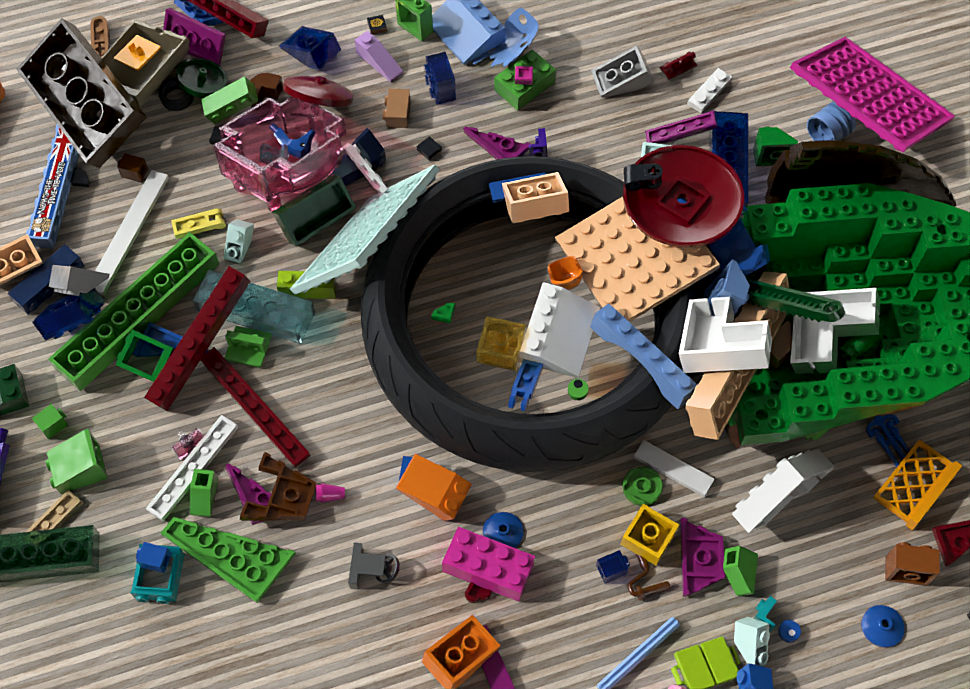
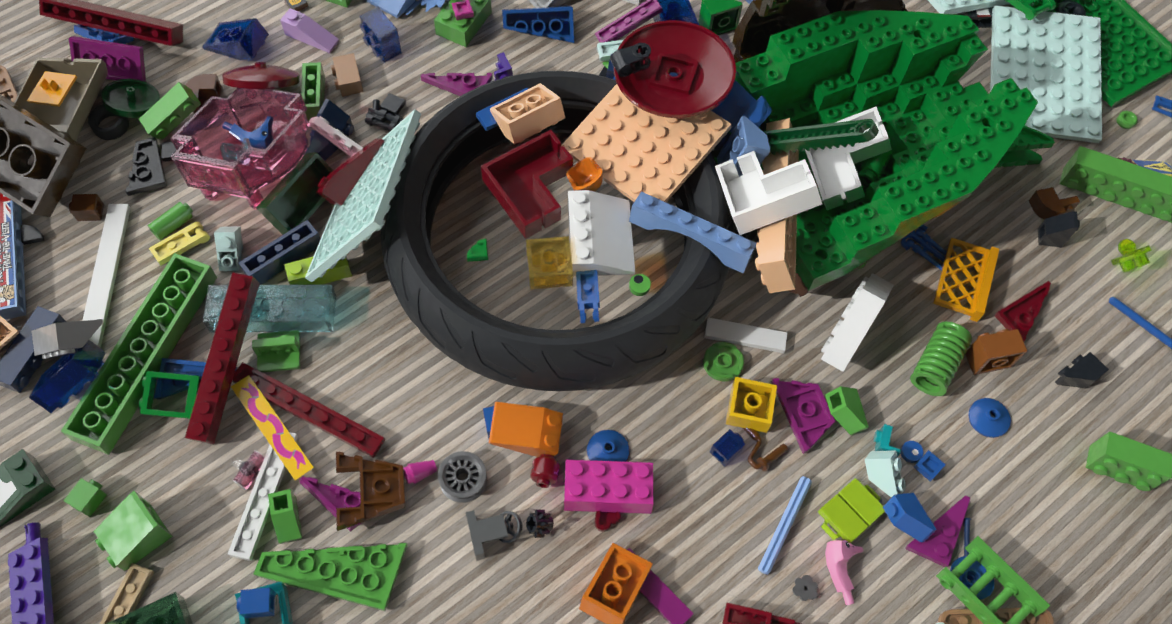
camera: 25 degrees left, 0 degrees up
(194, 148) = (147, 168): none -> black wing
(198, 200) = (170, 220): none -> bright green brick
(218, 412) = (272, 427): none -> yellow sticker
(279, 258) = (285, 249): none -> dark blue brick
(355, 208) = (342, 180): none -> dark red wedge
(357, 495) = (444, 472): none -> flat silver wheel
(360, 113) = (313, 88): none -> bright green brick
(410, 157) = (377, 117): none -> black piece
(415, 575) = (539, 523): none -> black gear
(438, 530) = (545, 470): none -> dark red head
(505, 257) = (521, 179): none -> dark red piece
(597, 105) = (543, 21): none -> blue wedge
(800, 650) = (929, 465): none -> blue plate
(855, 551) = (941, 358): none -> bright green piece

